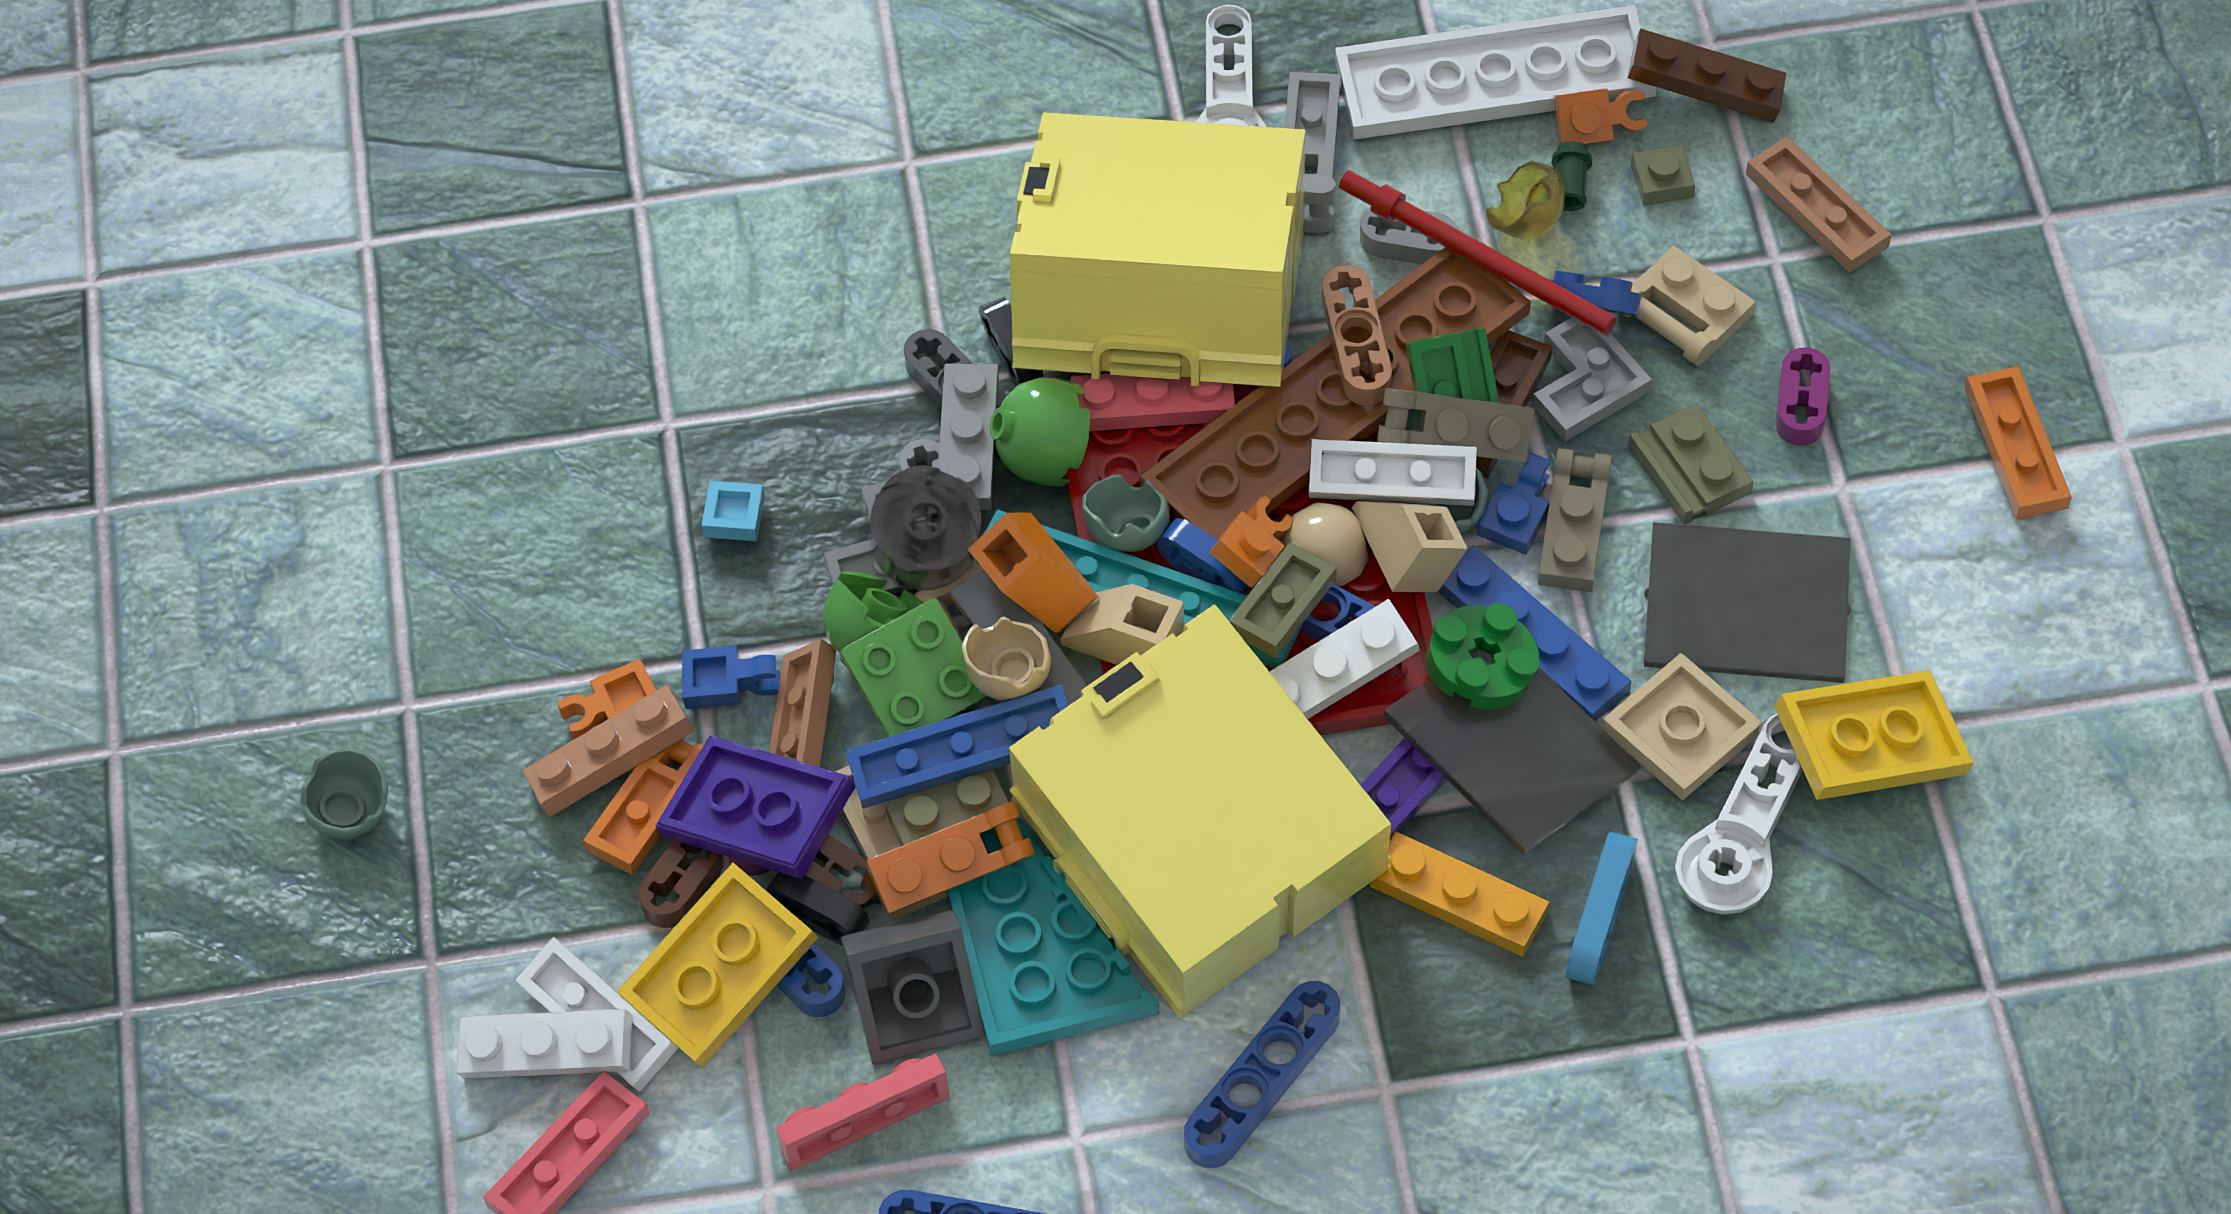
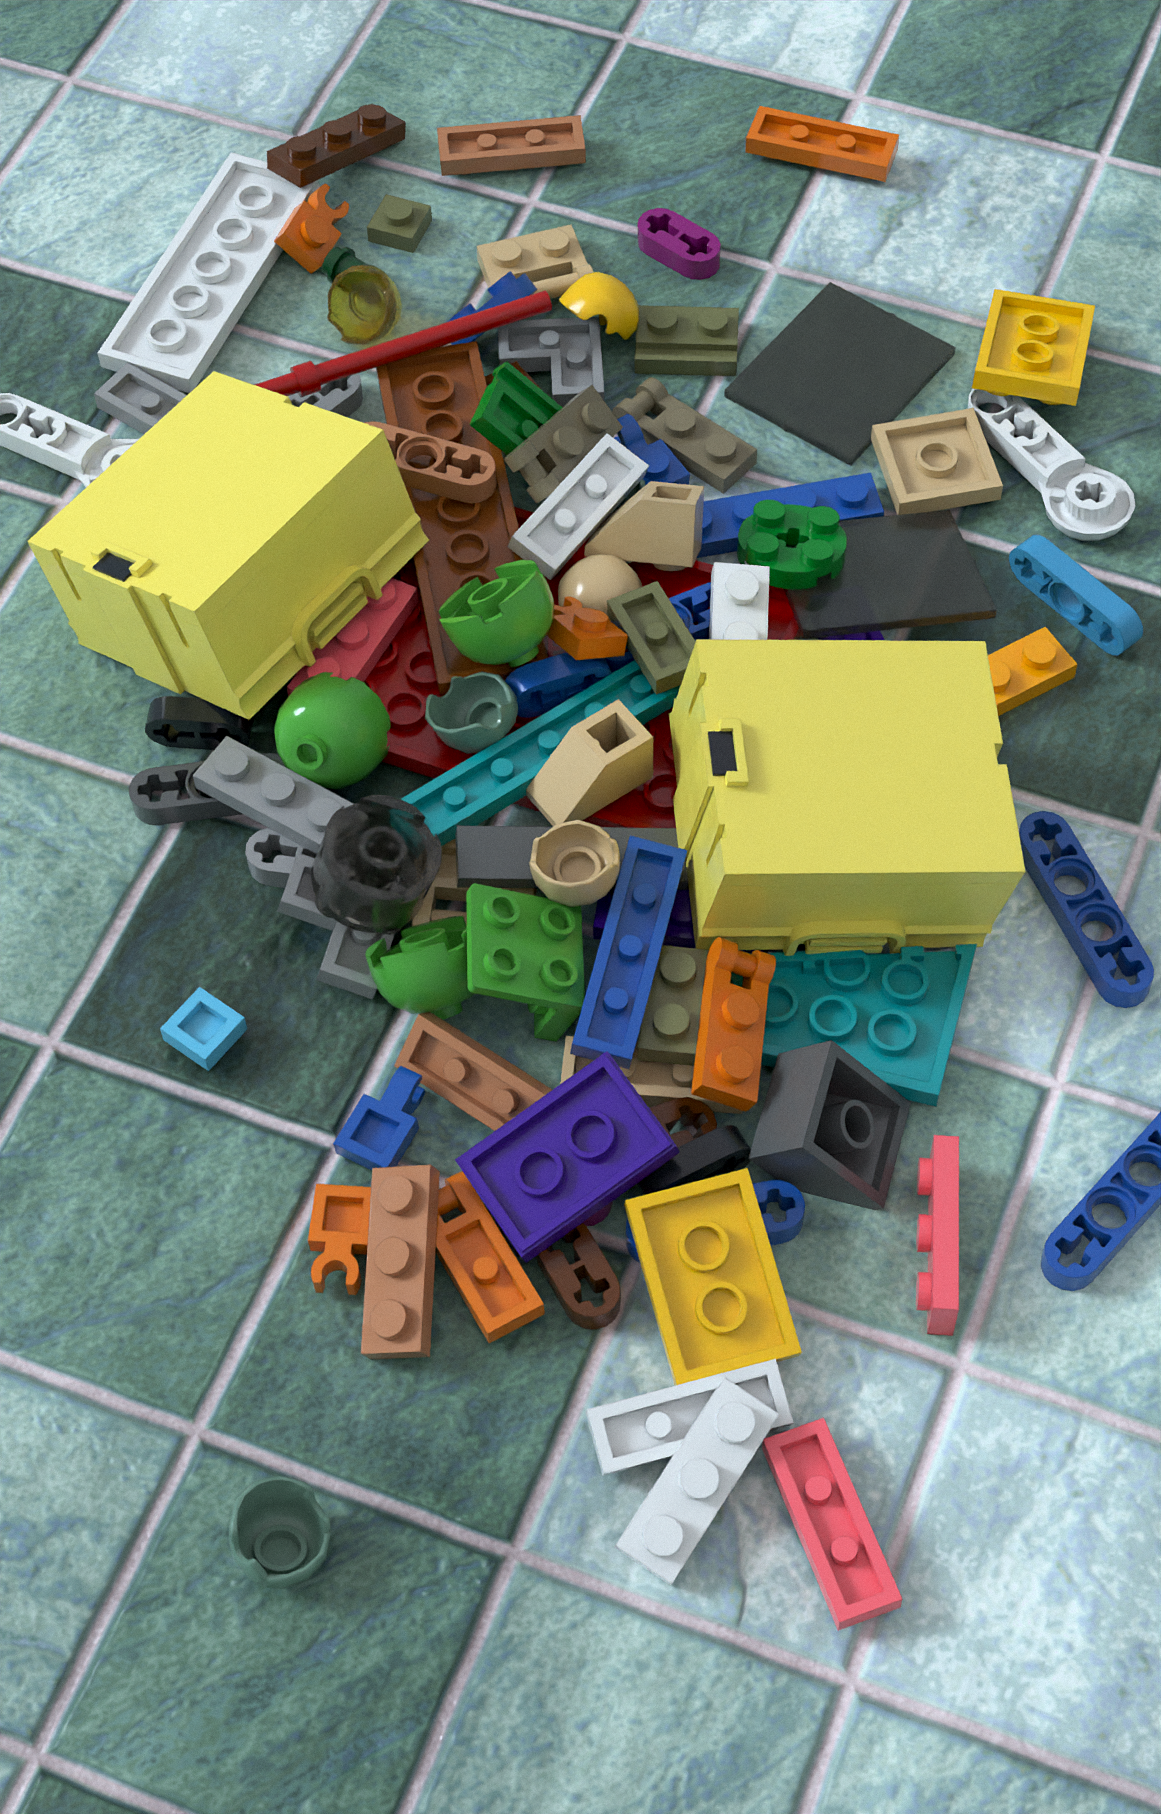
camera: 60 degrees left, 0 degrees up
(1033, 570) = (494, 795): orange slope -> none
(1209, 473) = (502, 617): none -> bright green cylinder
(1661, 373) = (605, 296): none -> yellow hair

